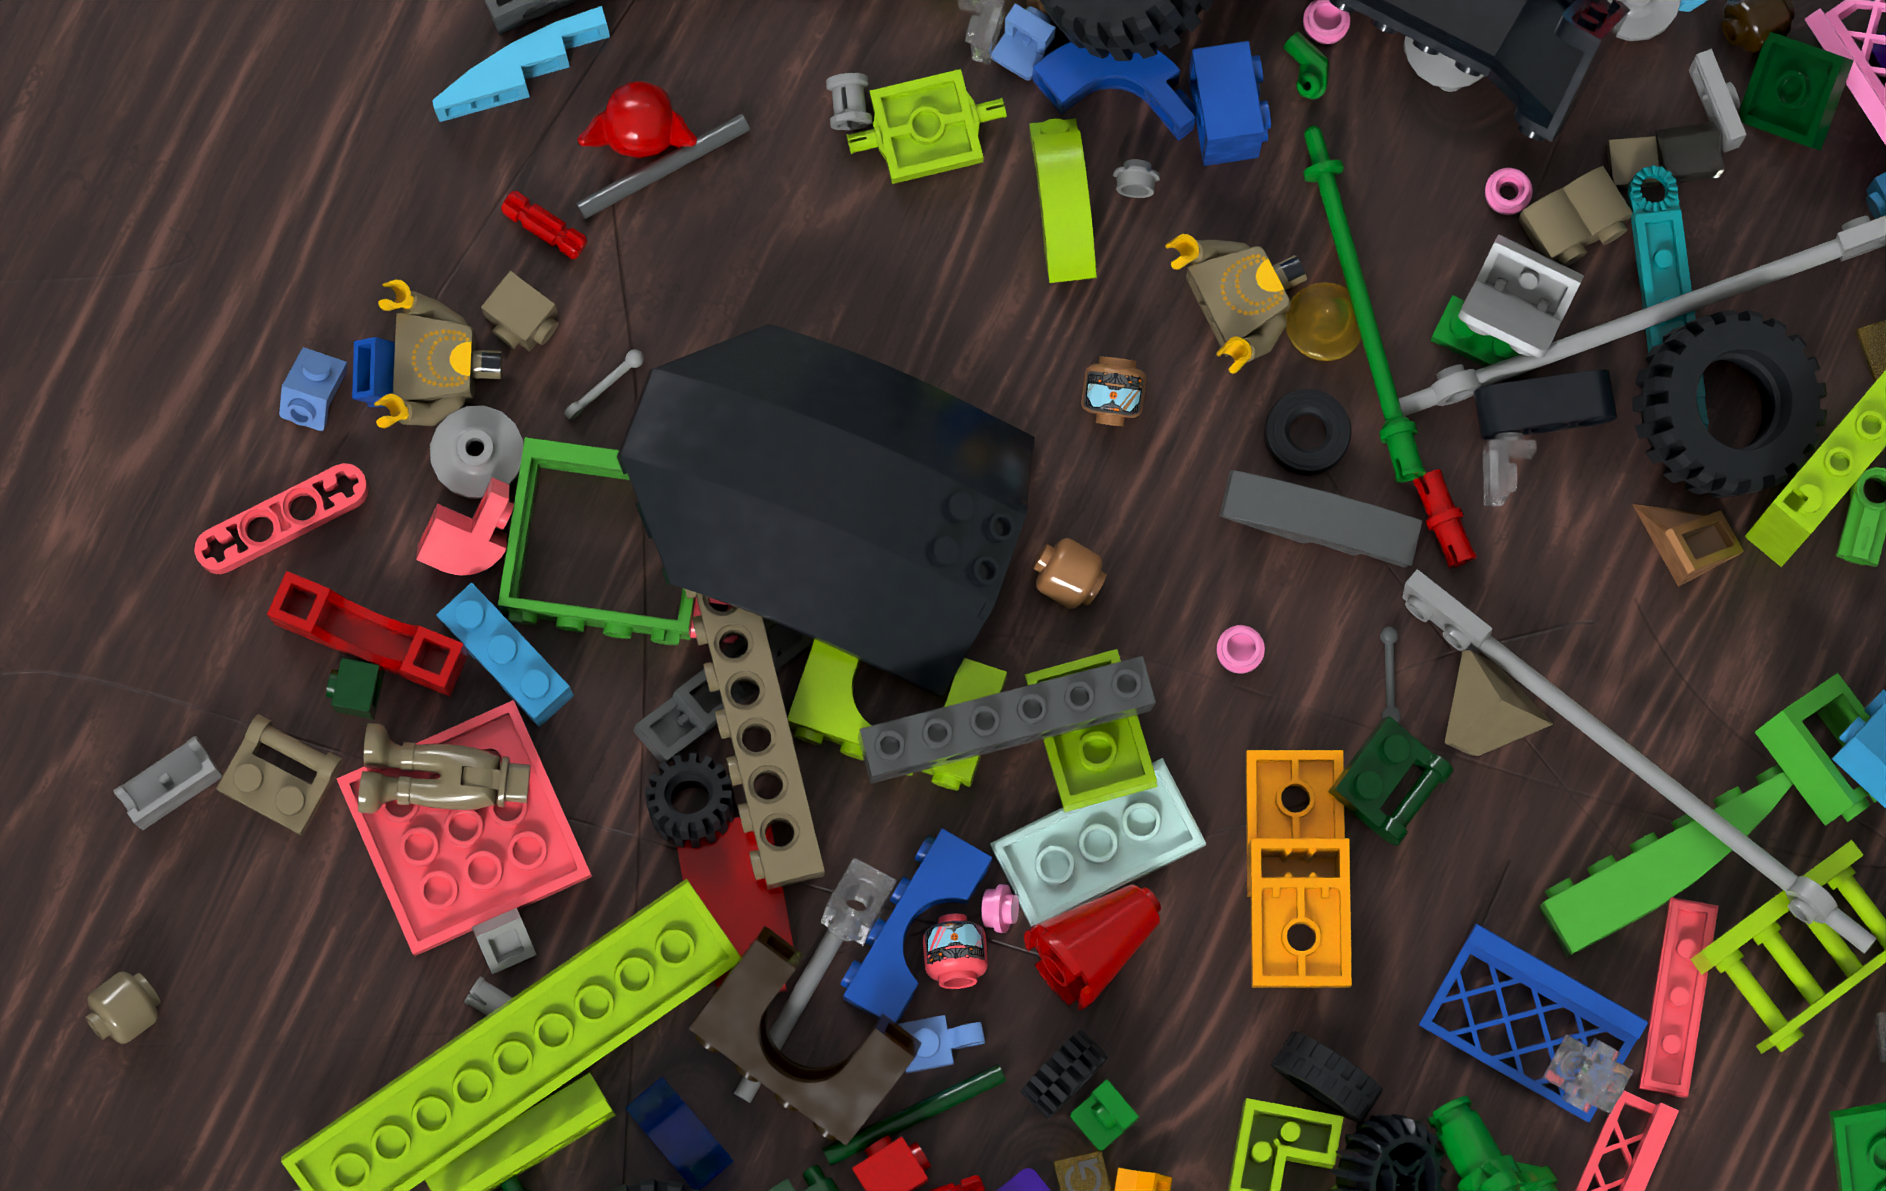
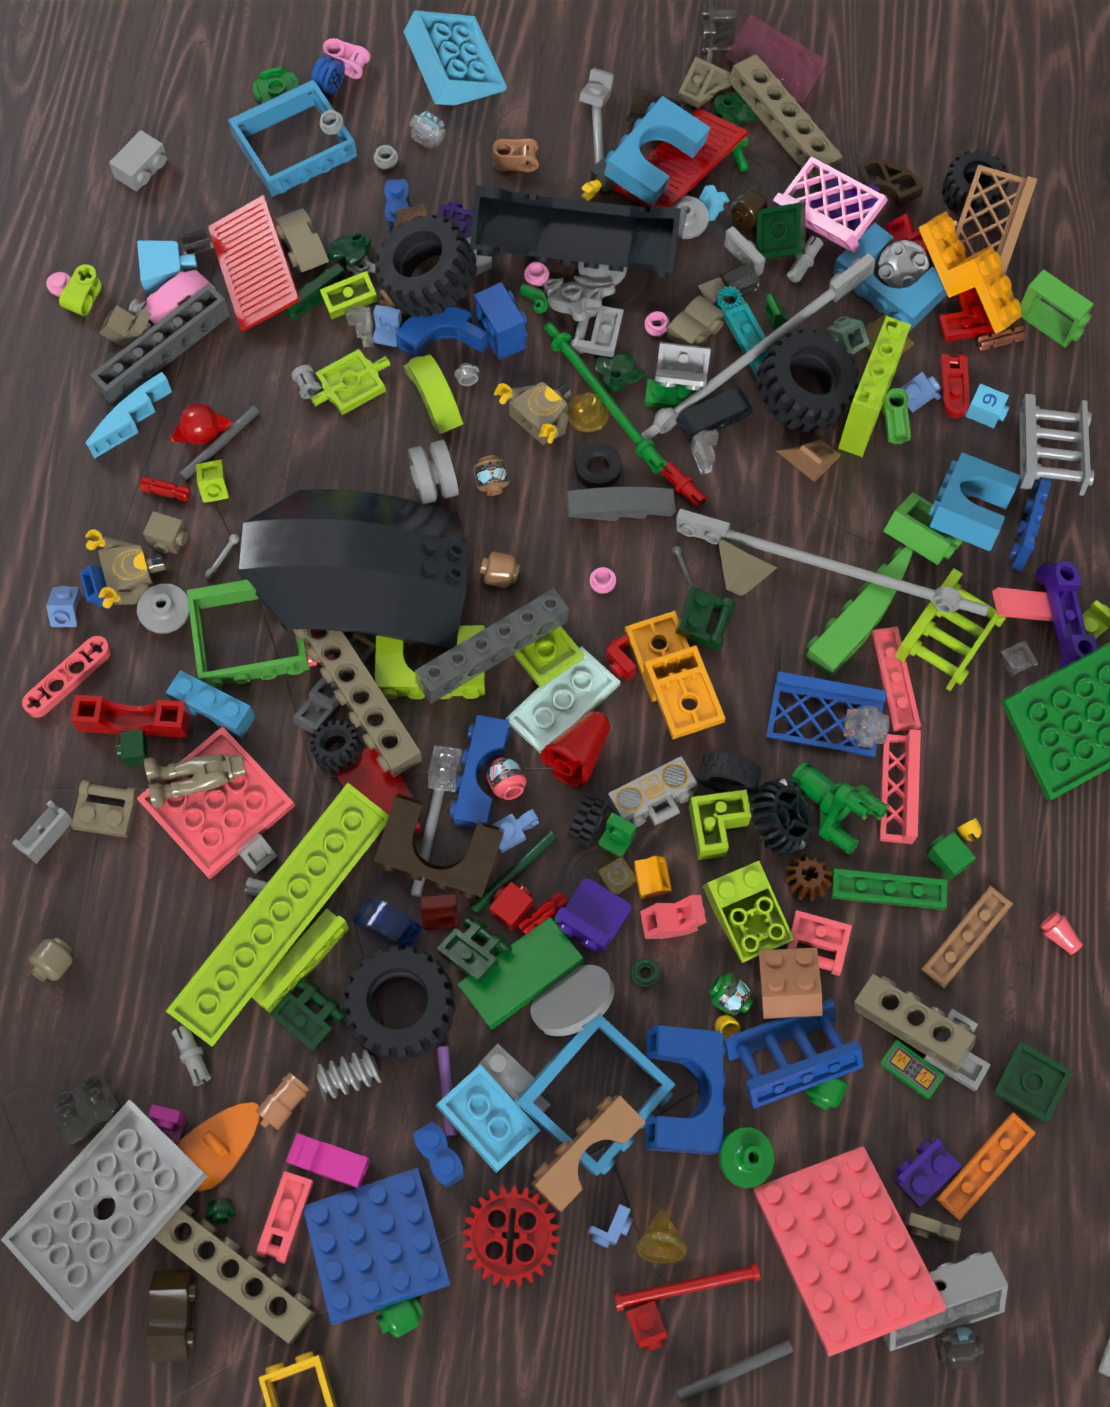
camera: 20 degrees left, 10 degrees down
(465, 543) = (173, 655): coral brick -> none
(628, 237) = (211, 481): none -> lime bracket
(770, 1142) = (439, 912): none -> clear red piece
(1000, 908) = (522, 748): bright pink plate -> none
(1011, 358) = (431, 472): none -> light grey wheel
(1168, 1060) = (659, 787): none -> light grey piece
(1215, 815) = (618, 661): none -> red bracket
(1381, 91) = (576, 295): none -> light grey tile
(1408, 177) = (604, 333): none -> light grey plate
(1411, 256) = (618, 371): none -> dark green plate
(1732, 238) = (775, 311): none -> green slope
(1812, 161) = (806, 260): none -> light grey axle
(1838, 334) = (850, 333): none -> sand green brick

